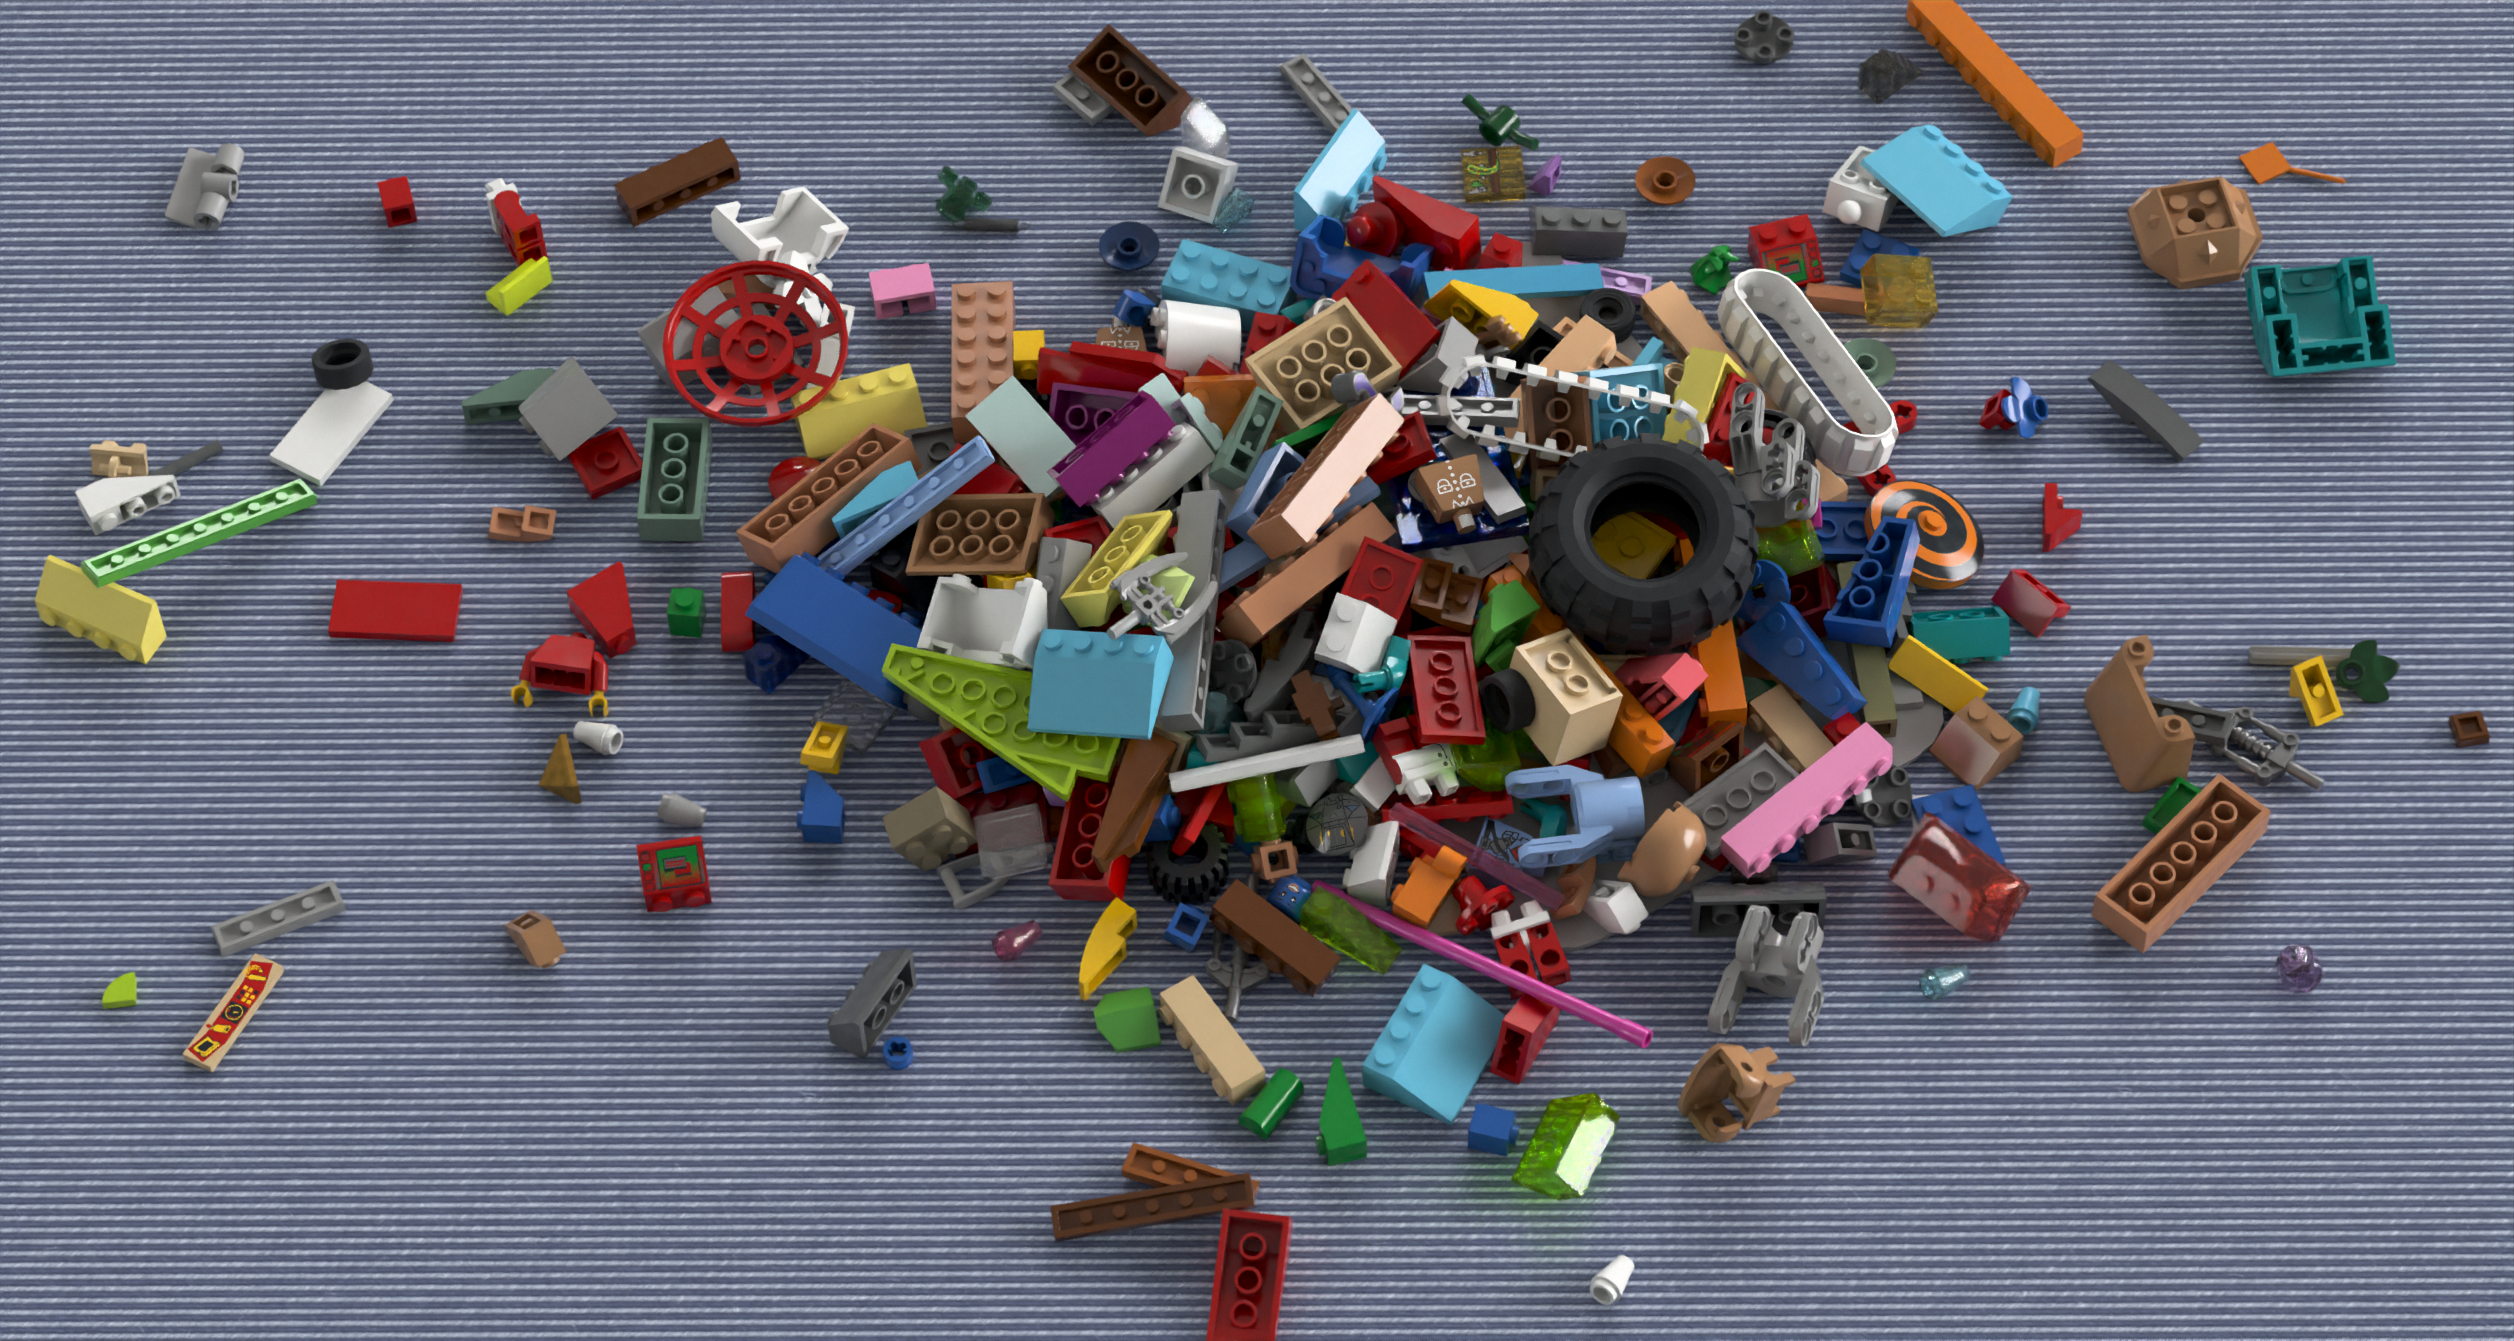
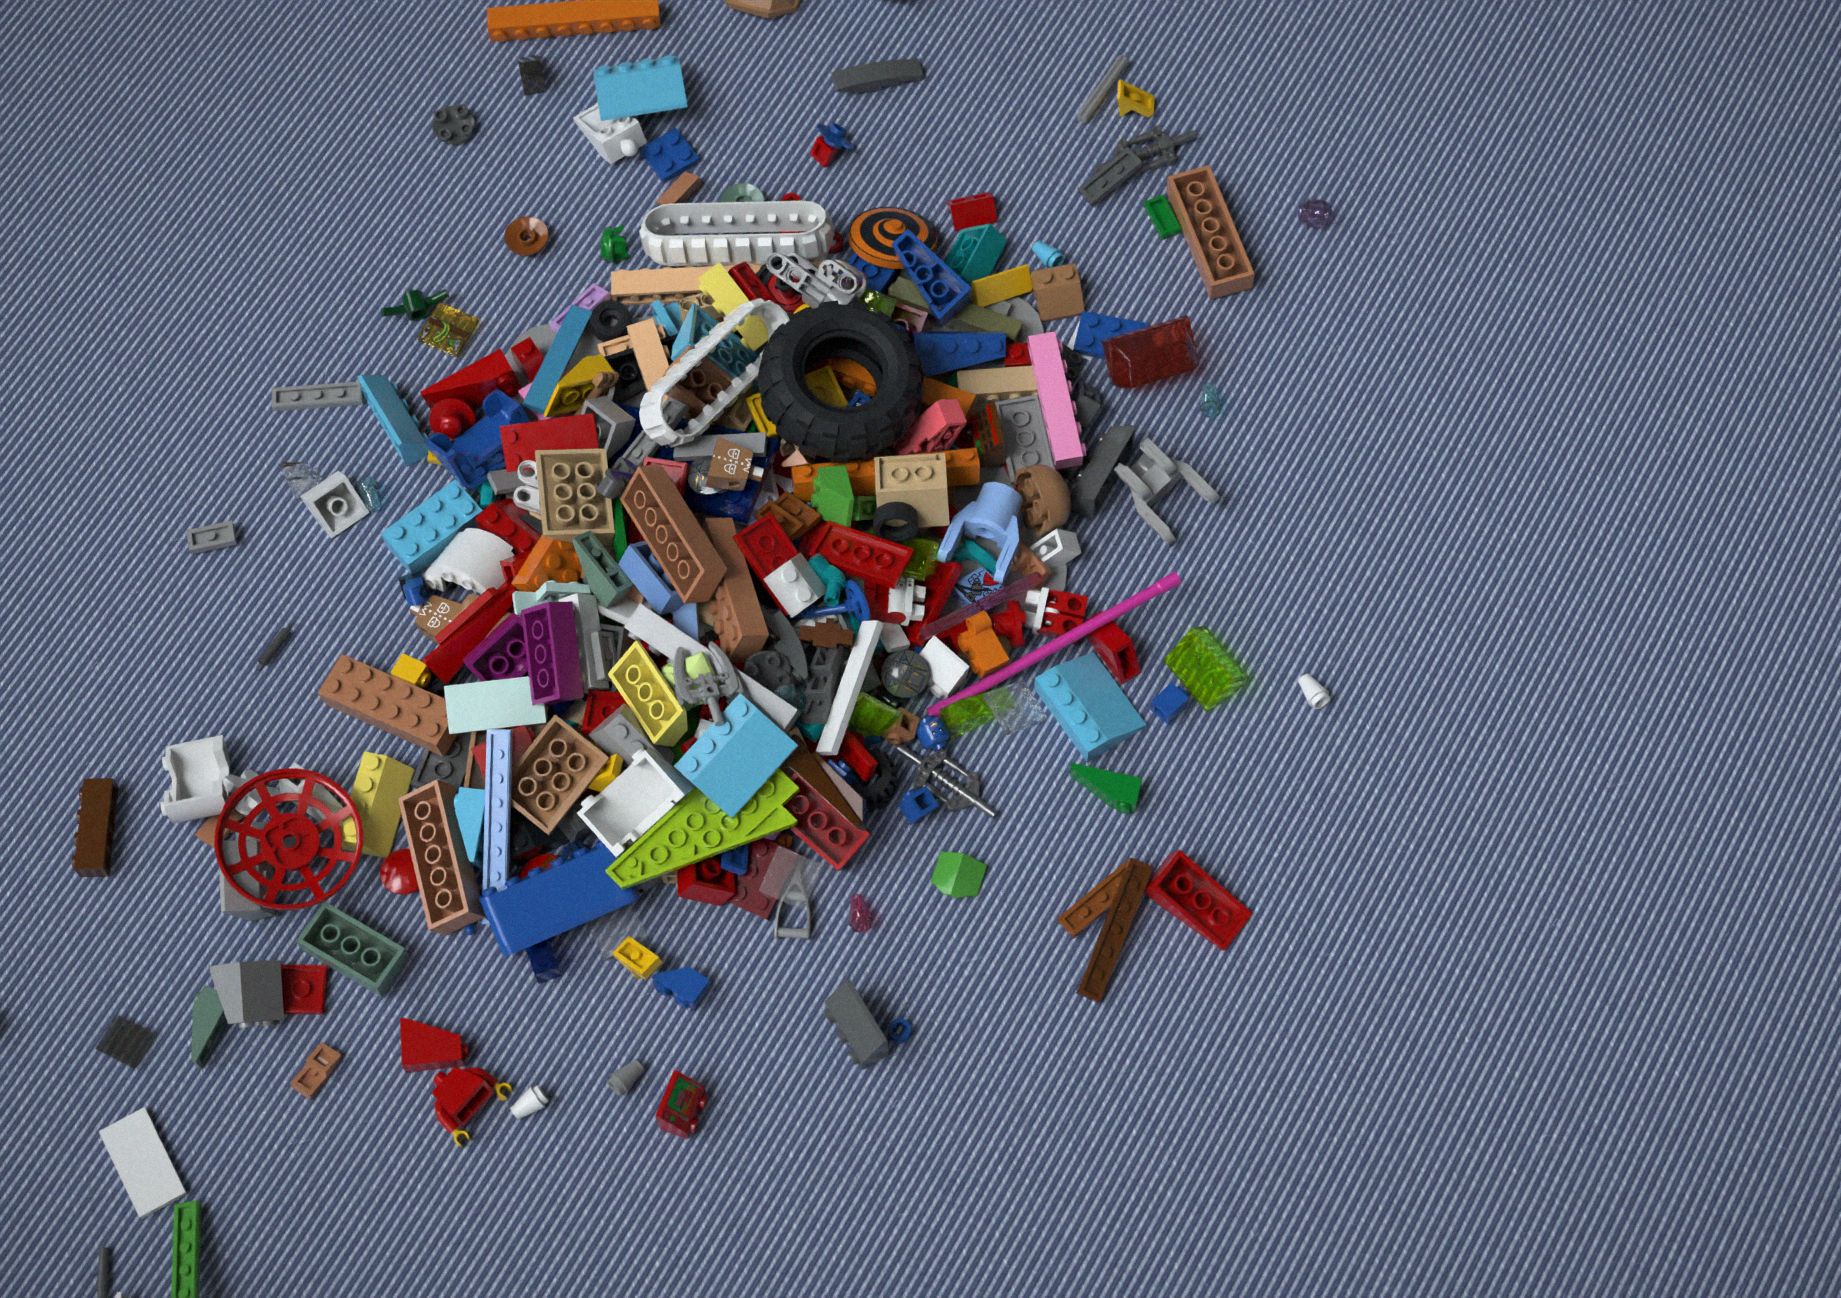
camera: 60 degrees left, 10 degrees up
(345, 376) = (85, 1120): black tyre -> none
(395, 610) = (332, 1191): red tile -> none
(454, 341) = (125, 1042): none -> clear smoke piece
(518, 231) = (58, 953): red hips -> none
(520, 285) = (108, 975): neon yellow panel -> none
(536, 938) = (669, 1222): medium nougat slope -> none
(560, 773) = (544, 1141): pearl gold slope -> none
(686, 612) = (467, 995): green brick -> none
(736, 597) = (486, 962): red beam -> none
(899, 284) = (292, 722): bright pink piece -> none
(930, 829) = (752, 922): dark tan piece -> none
(959, 196) = (242, 653): clear green plate -> none
(1106, 946) = (898, 862): yellow slope -> none
(1129, 246) = (352, 562): dark blue dish -> none
(1131, 83) = (225, 500): reddish brown slope -> none
(1154, 496) = (604, 653): none -> light grey plate
(1211, 1040) = (1008, 833): tan brick -> none
(1272, 1103) = (1072, 821): green brick -> none
(1274, 938) = (959, 756): reddish brown brick -> none
(1379, 968) = (1015, 707): none -> clear tile
(1547, 176) = (472, 300): medium lavender slope -> none
(1578, 231) = (530, 303): dark grey slope -> none
(1736, 1074) = (1231, 542): medium nougat piece -> none
(1787, 248) = (629, 199): red slope -> none
(1899, 290) = (706, 153): clear yellow brick -> none
(2057, 522) = (922, 167): red slope -> none
(2139, 744) = (1096, 201): medium nougat windscreen -> none
(2372, 672) = (1134, 66): dark green plate -> none
(2469, 729) = (1201, 40): reddish brown tile -> none

